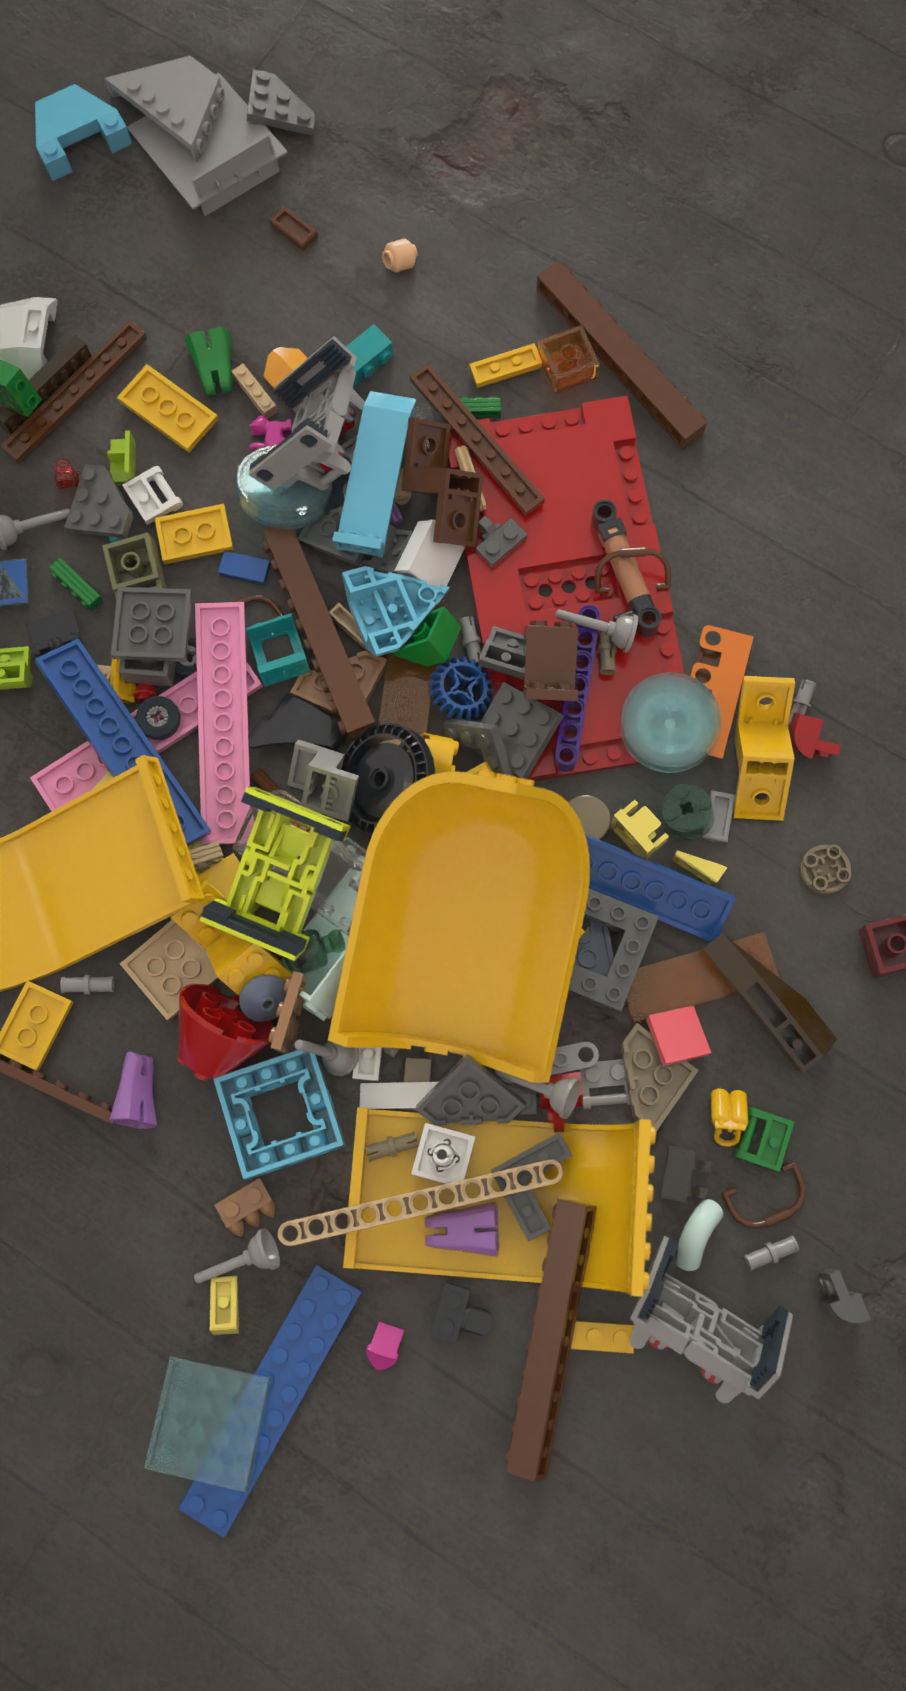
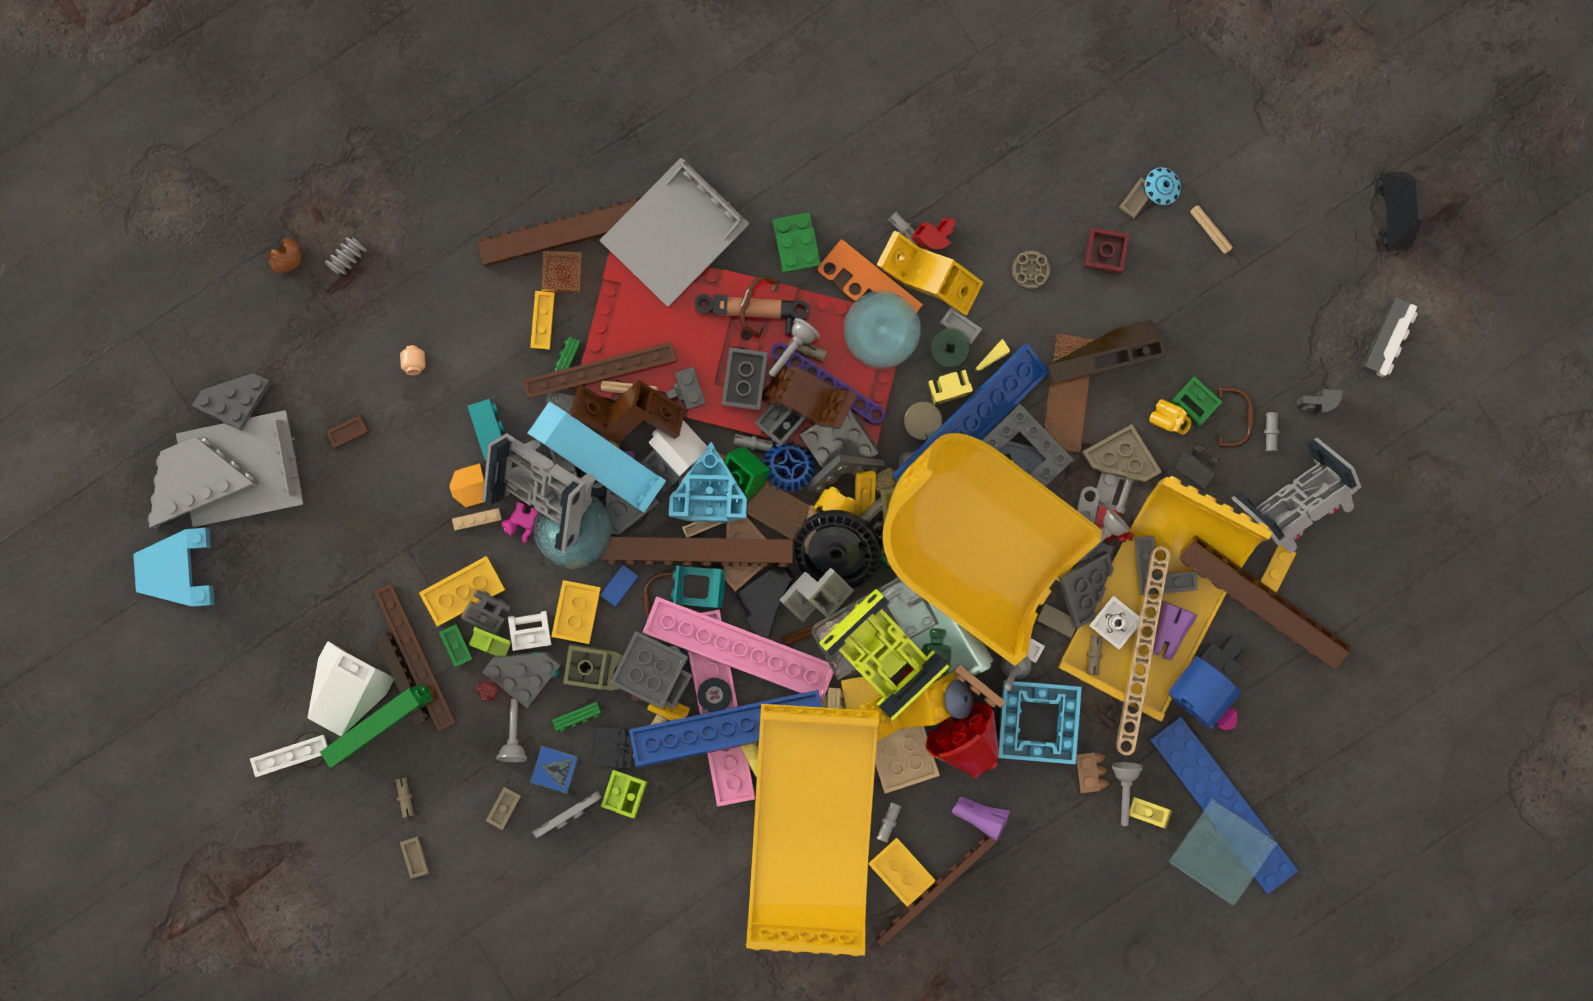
camera: 75 degrees left, 10 degrees up
(104, 426) = (455, 645): none -> green plate
(143, 692) = (688, 697): red plate -> none
(146, 438) = (483, 617): none -> dark grey plate
(212, 358) = (437, 541): green piece -> none
(393, 1094) = (1059, 638): white sticker -> none
(400, 1306) = (1204, 692): none -> blue brick
(451, 92) = (286, 258): none -> dark orange hair
(481, 146) = (345, 256): none -> light grey piece
(538, 591) = (744, 379): none -> dark grey brick
(671, 452) = (674, 232): none -> light grey door
(678, 1035) = (1103, 426): coral tile -> none
(696, 1234) = (1239, 476): light aqua cylinder -> none
(724, 588) = (796, 242): none -> green bracket

